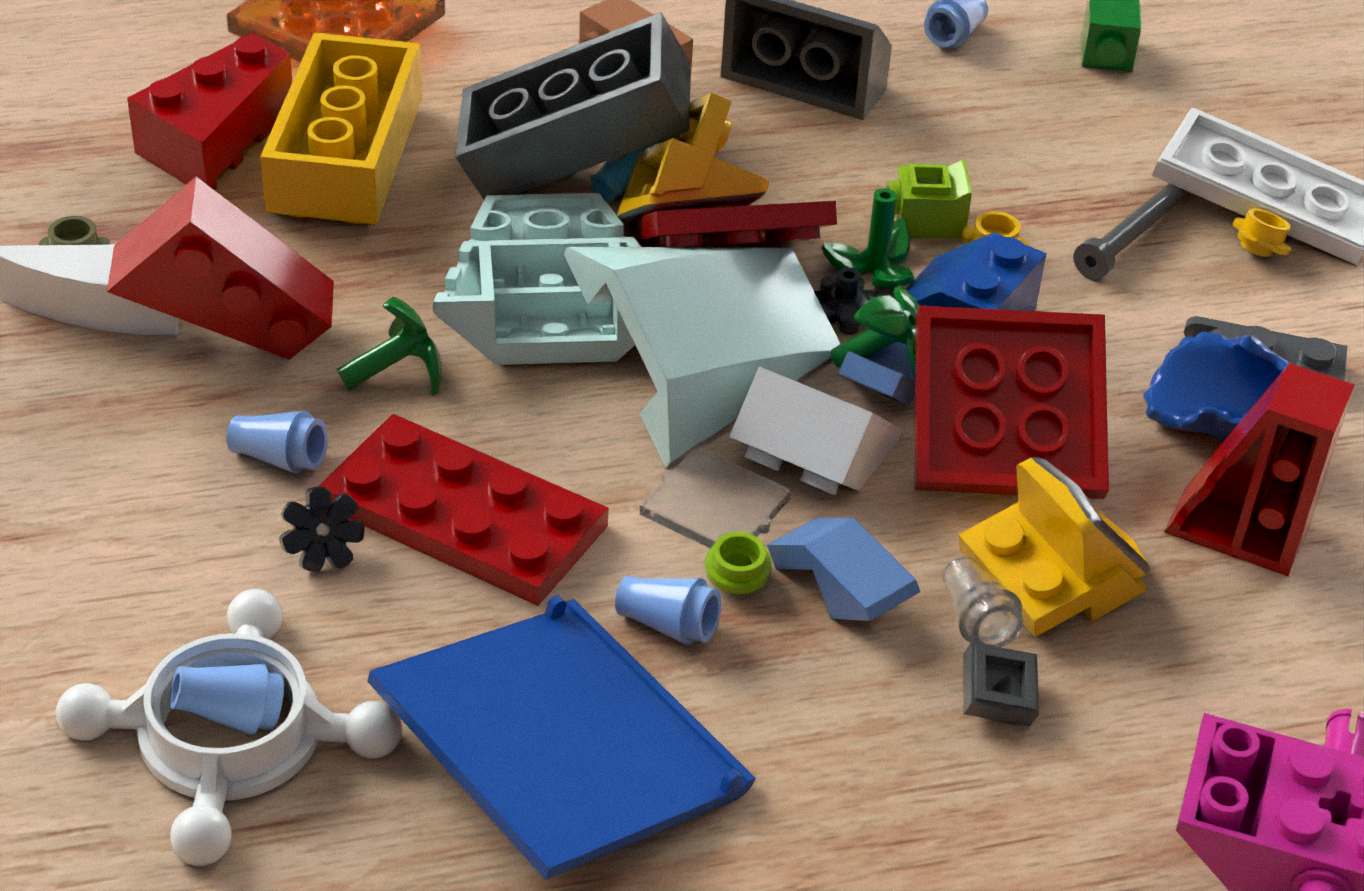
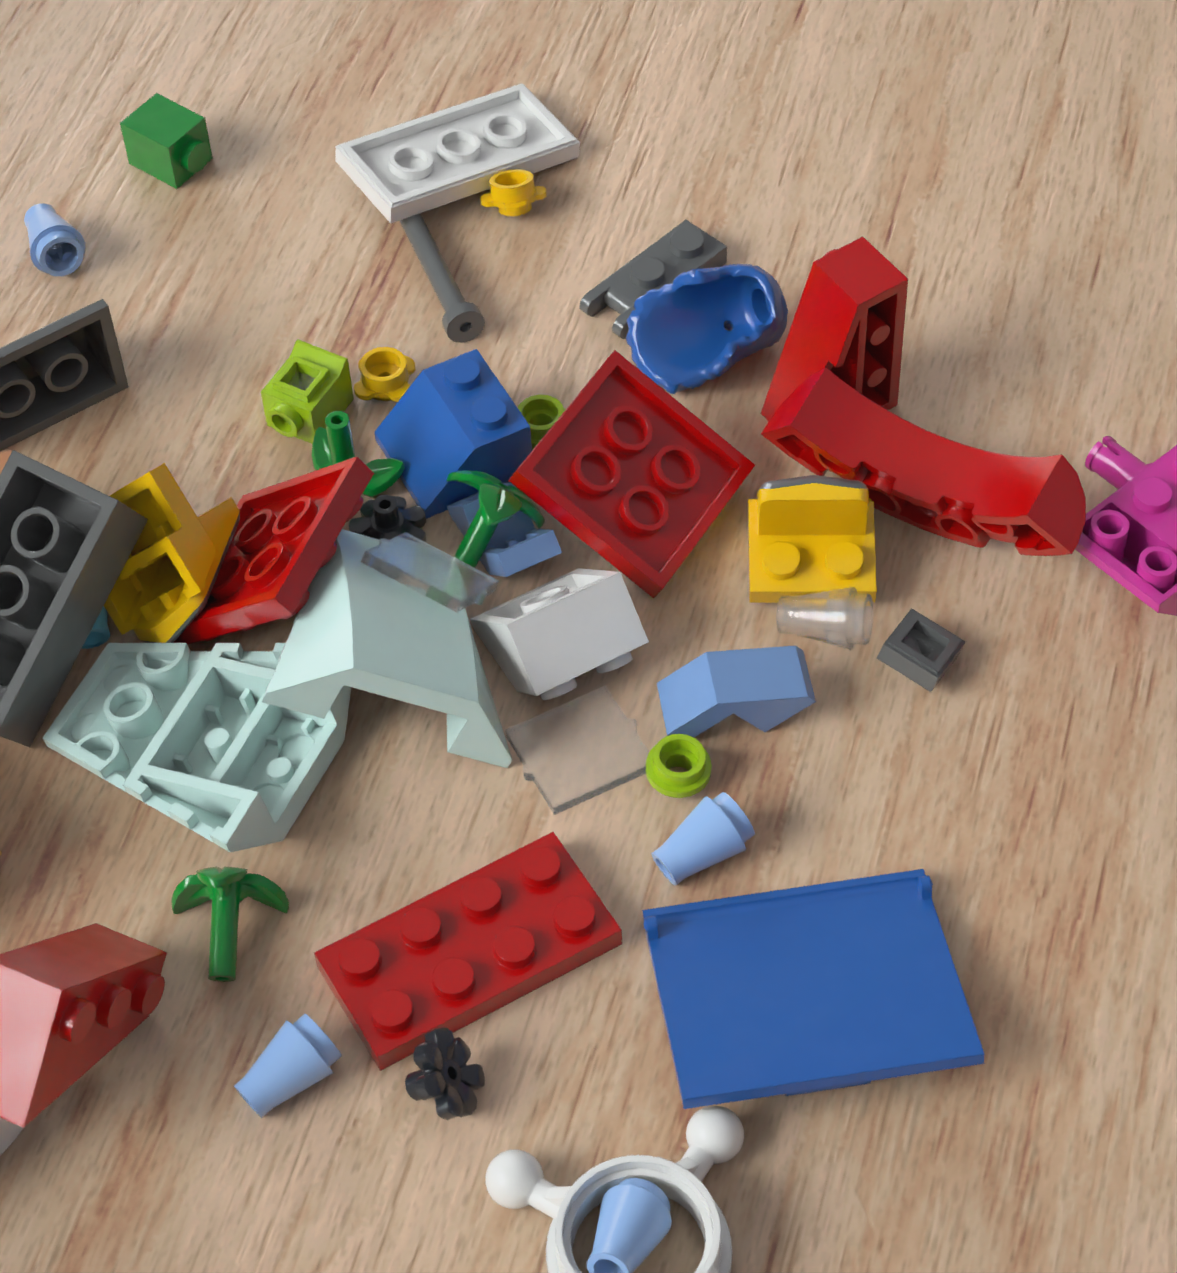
camera: 55 degrees left, 10 degrees up
(797, 322) = (430, 571): none -> clear piece
(1193, 587) = (928, 478): none -> red brick

